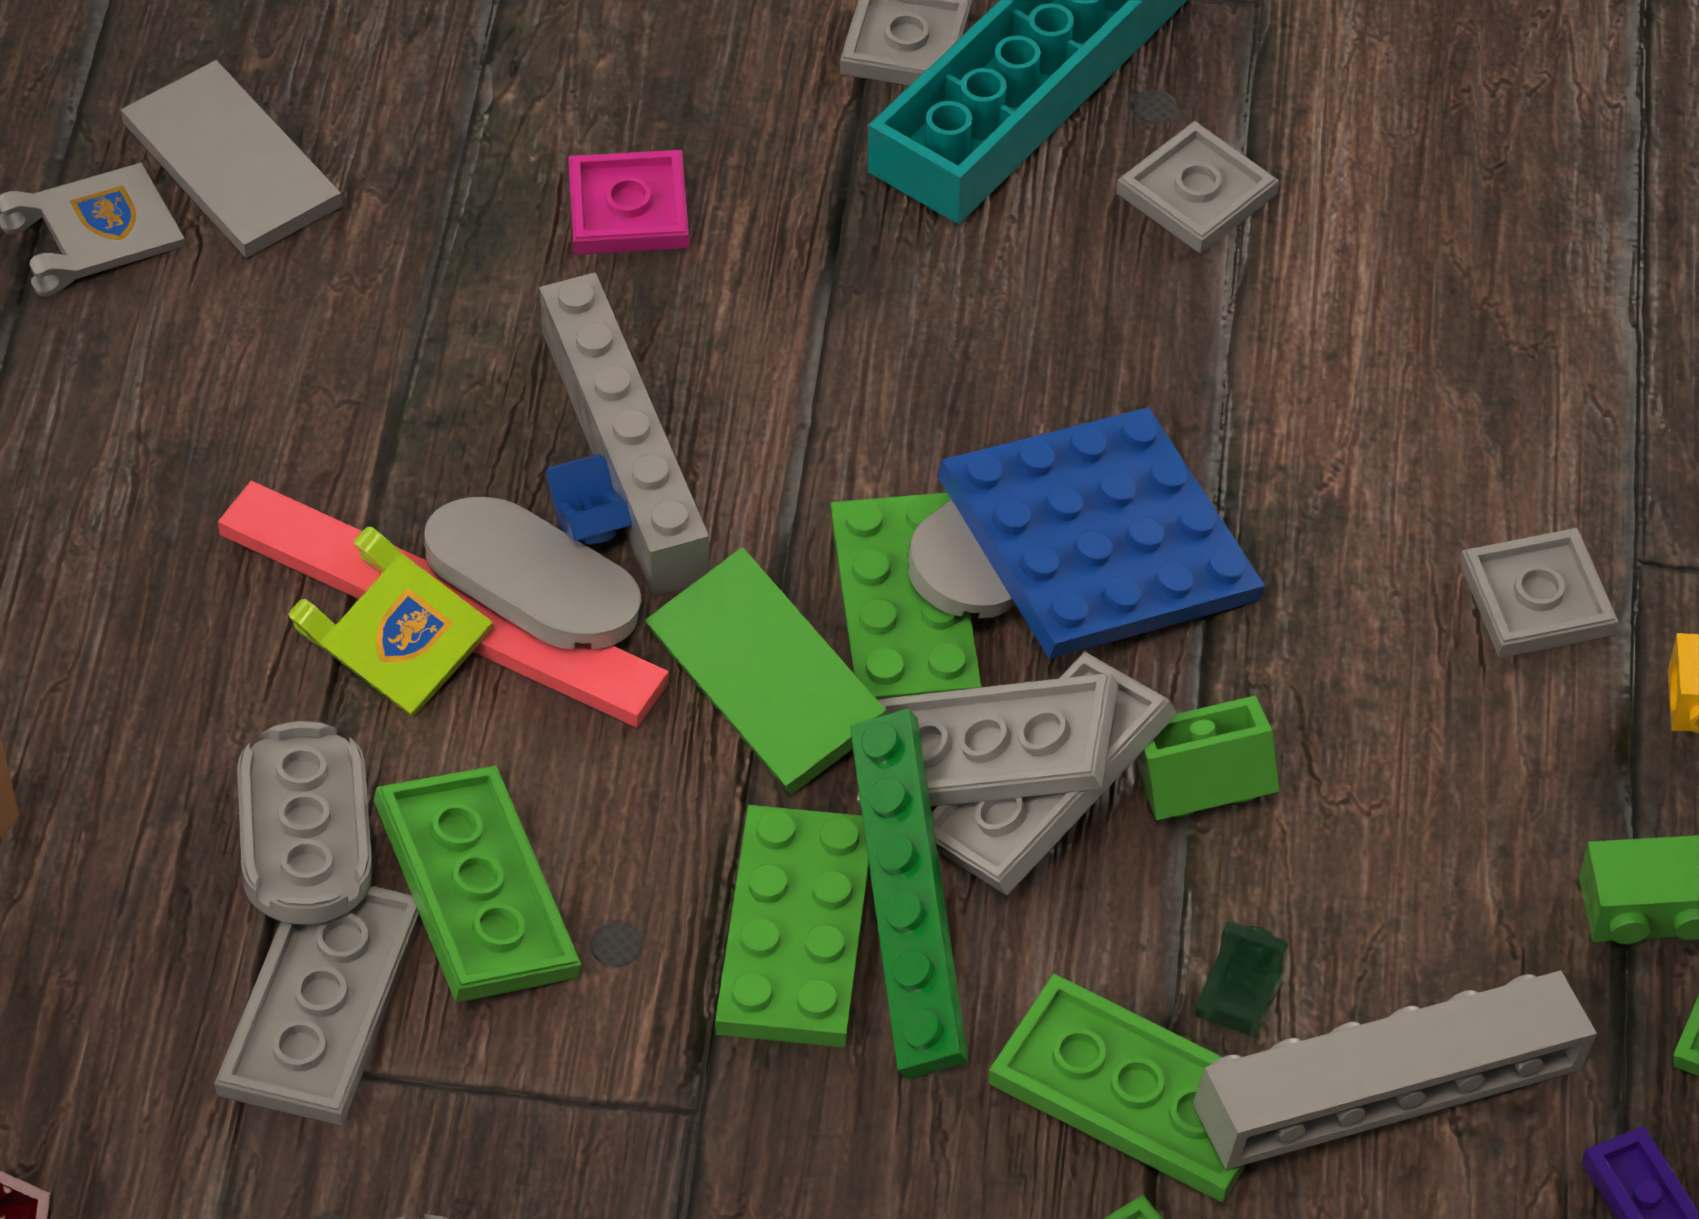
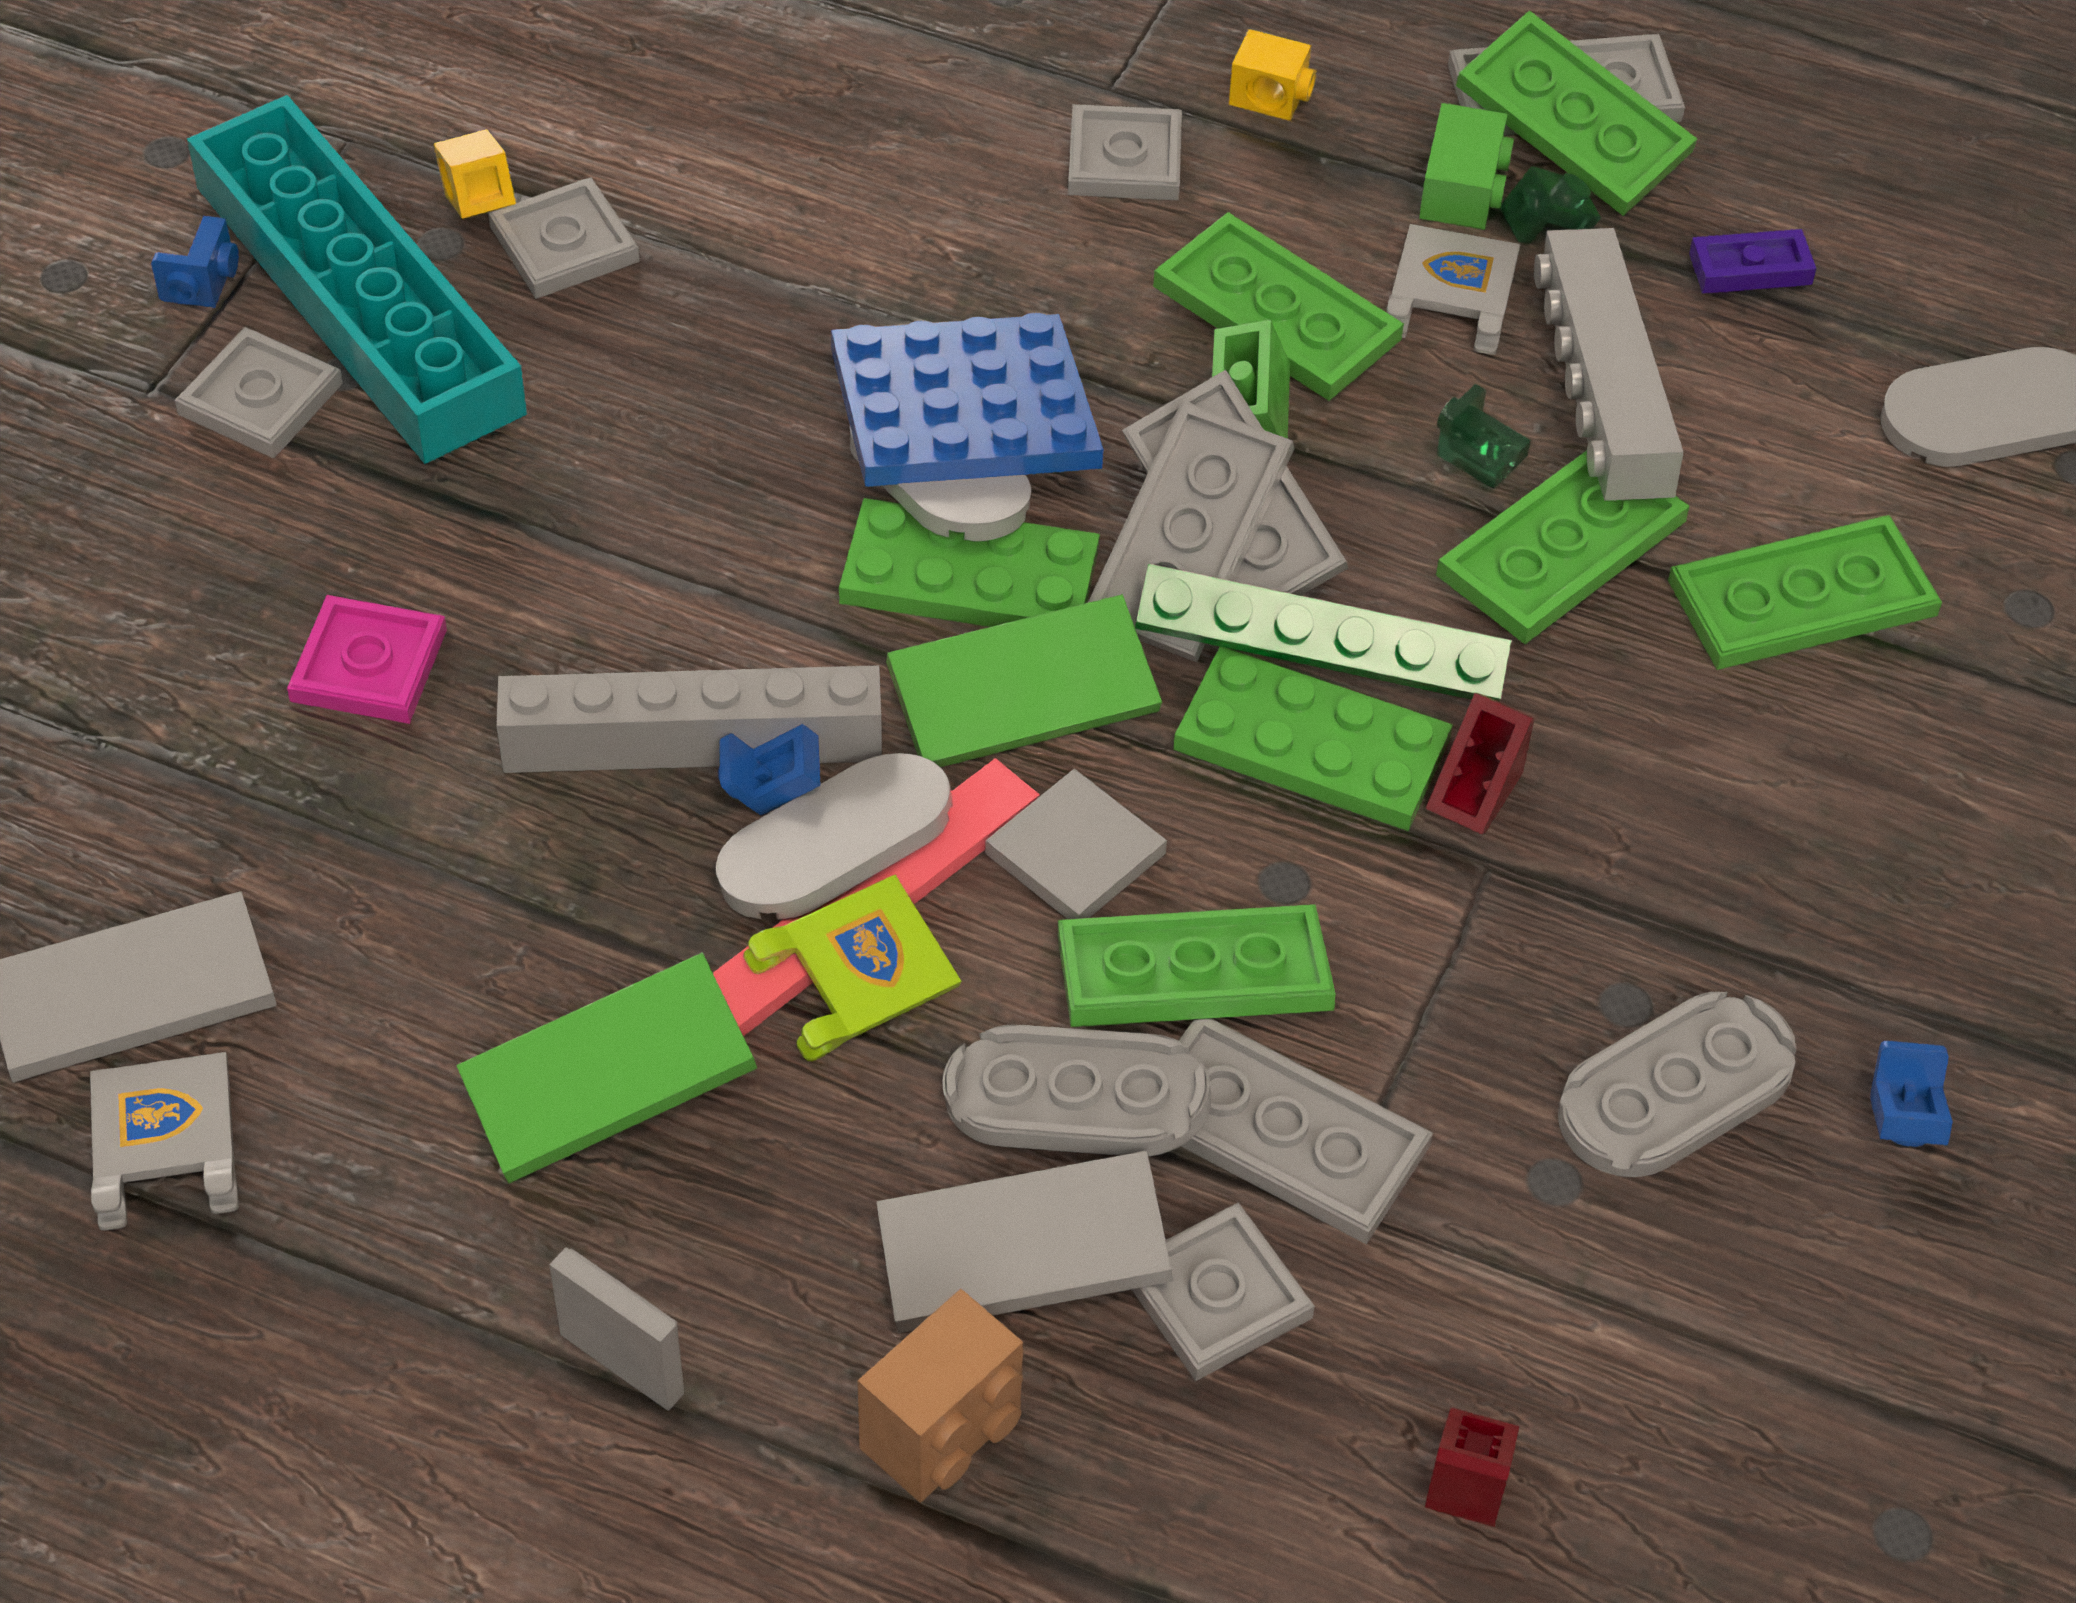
camera: 75 degrees left, 0 degrees up
(128, 984) = (1224, 1293): none -> light grey tile
(132, 821) = (1026, 1239): none -> light grey tile
(227, 479) = (606, 1067): none -> bright green tile
(592, 763) = (1075, 847): none -> light grey tile
(791, 1066) = (1482, 764): none -> dark red slope
(1224, 89) = (474, 173): none -> yellow brick
(1363, 768) = (1244, 277): none -> bright green plate
(1487, 921) = (1455, 277): none -> light grey flag
(1641, 985) = (1548, 198): none -> clear green bracket

